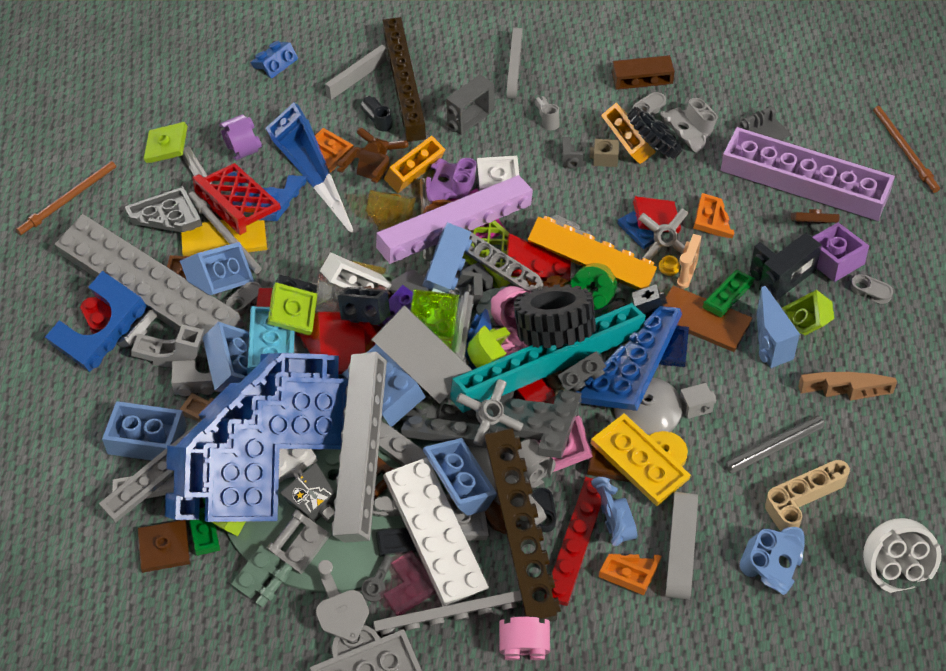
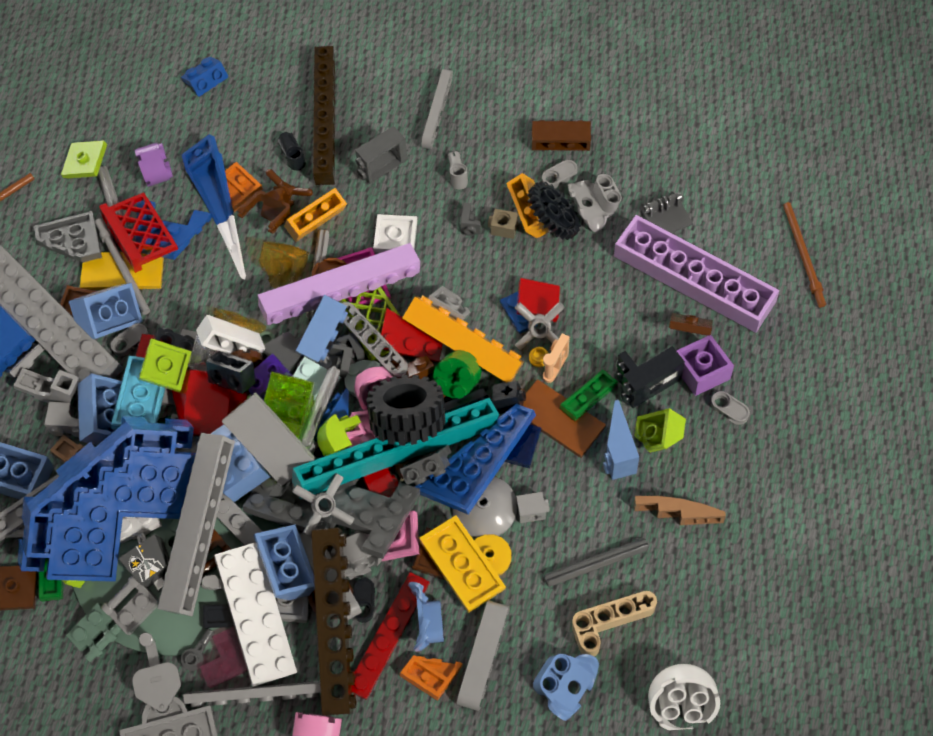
camera: 10 degrees right, 10 degrees up
(356, 72) = (280, 101): light grey tile -> none
(460, 176) = (353, 226): medium lavender piece -> none
(712, 217) = (593, 308): orange wing -> none

